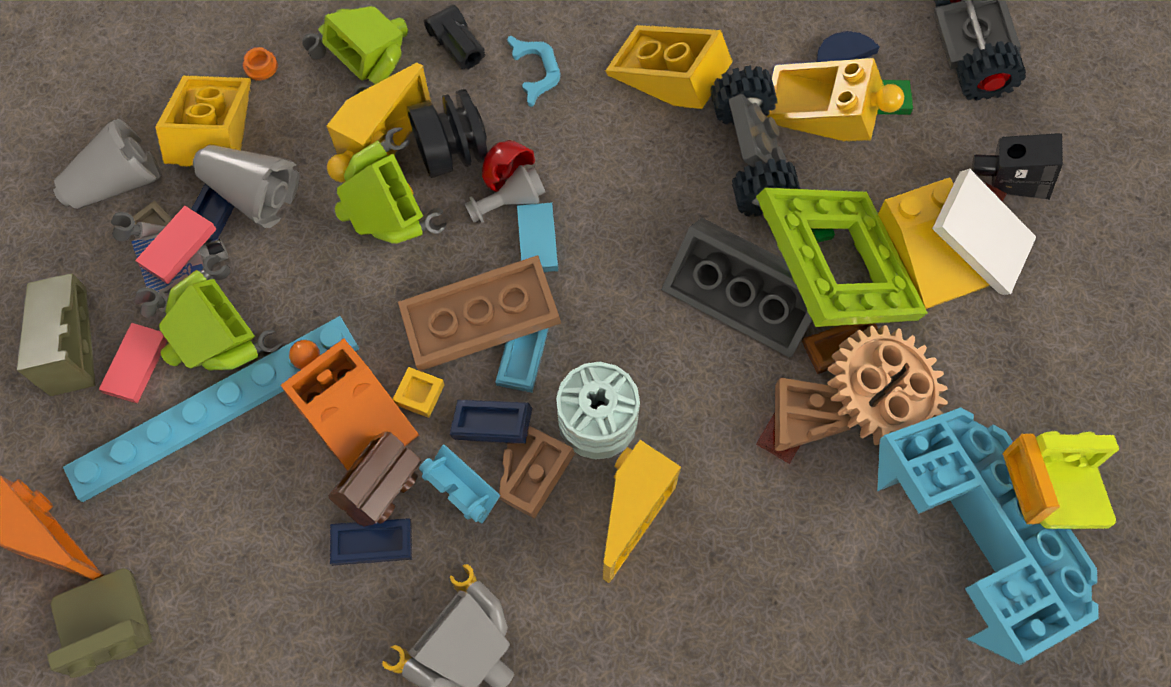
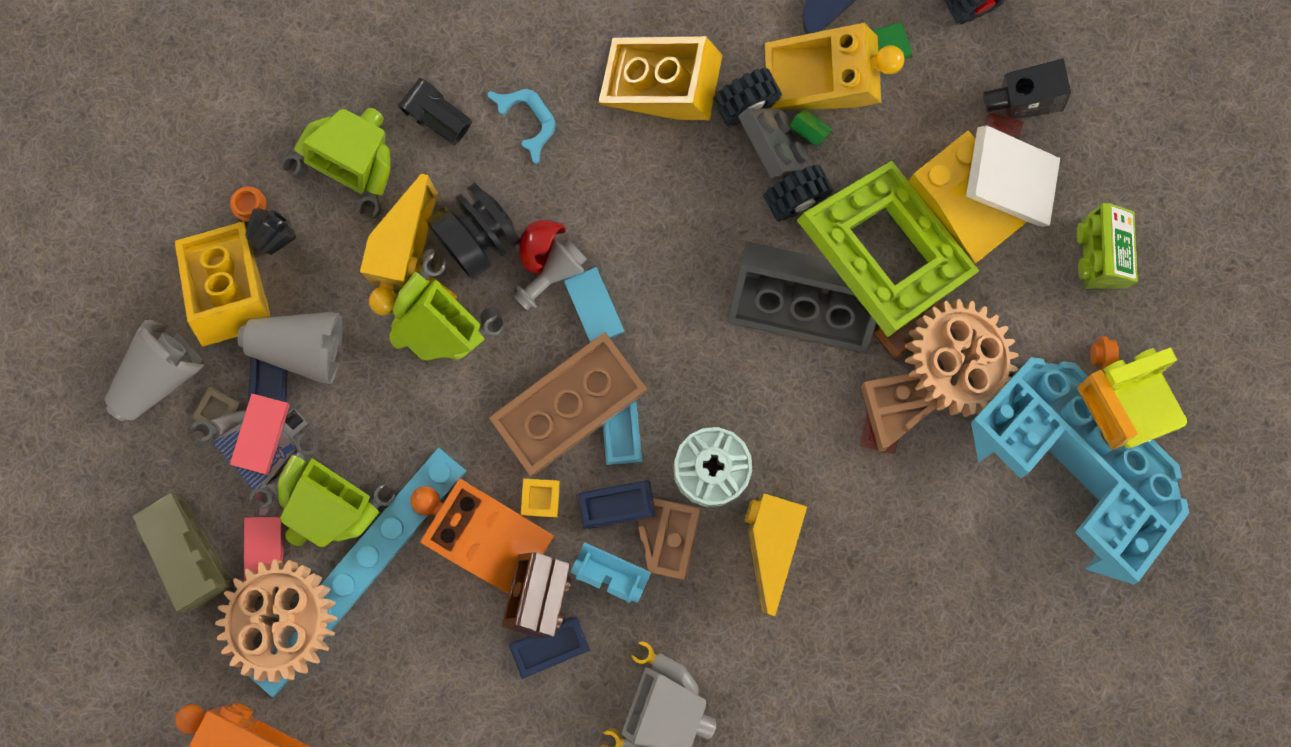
camera: 20 degrees left, 15 degrees up
(111, 421) = (244, 622): none -> light nougat gear
(266, 87) = (268, 231): none -> black piece
(796, 141) = (811, 127): none -> green tile
(1040, 423) = (1104, 352): none -> orange plate
(1067, 326) = (1108, 248): none -> lime slope

